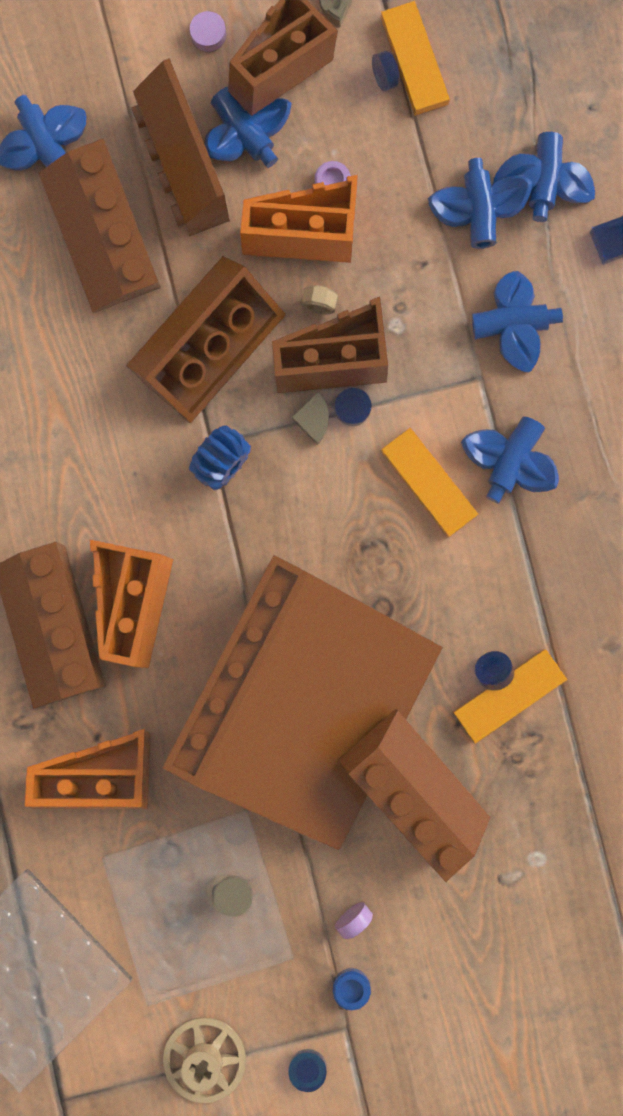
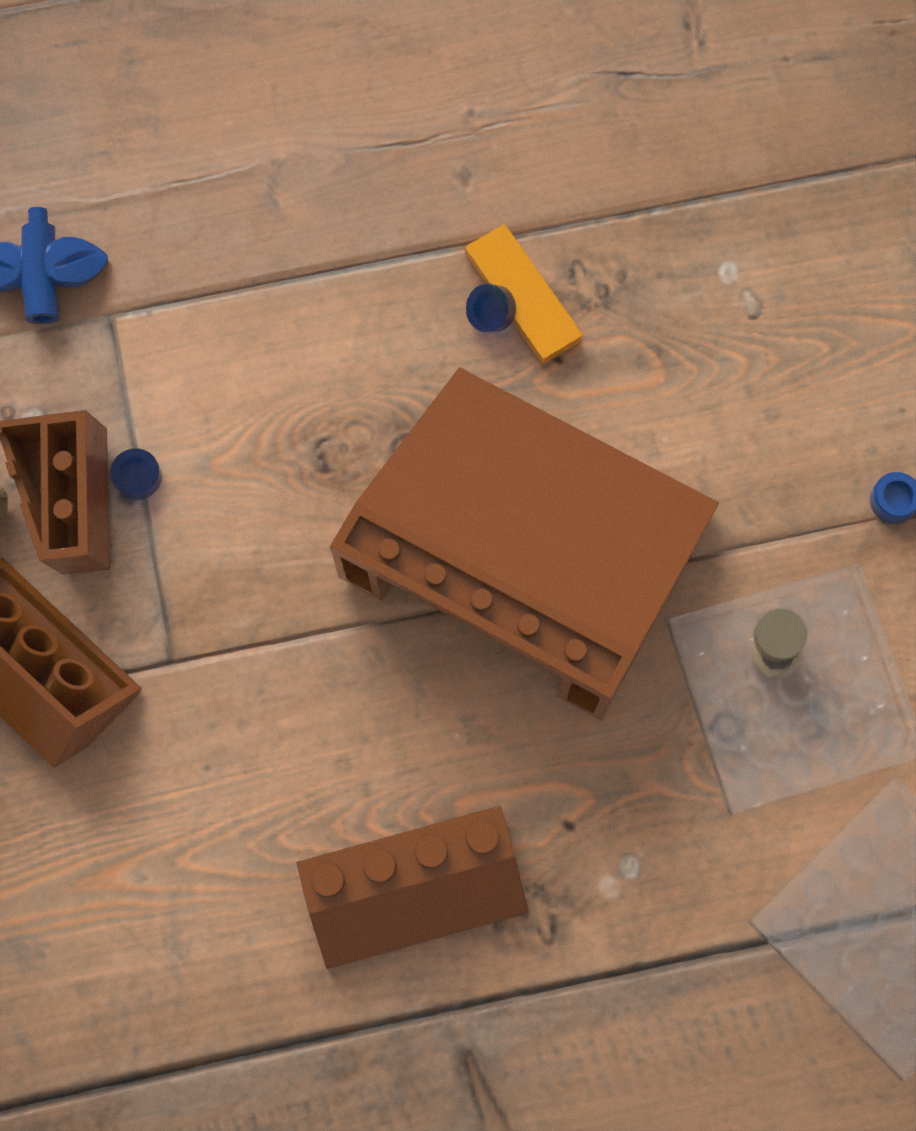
camera: 90 degrees left, 10 degrees down
(95, 778) = (625, 817): orange wedge -> none
(129, 601) = (379, 767): orange wedge -> none
(219, 457) = (192, 640): blue gear -> none
(313, 418) = (147, 523): dark tan tile -> none
(354, 921) = (809, 488): lavender tile -> none
(418, 794) = (647, 400): dark orange slope -> none
(429, 482) = (243, 381): light orange tile -> none
(512, 459) = (220, 277): blue plant -> none

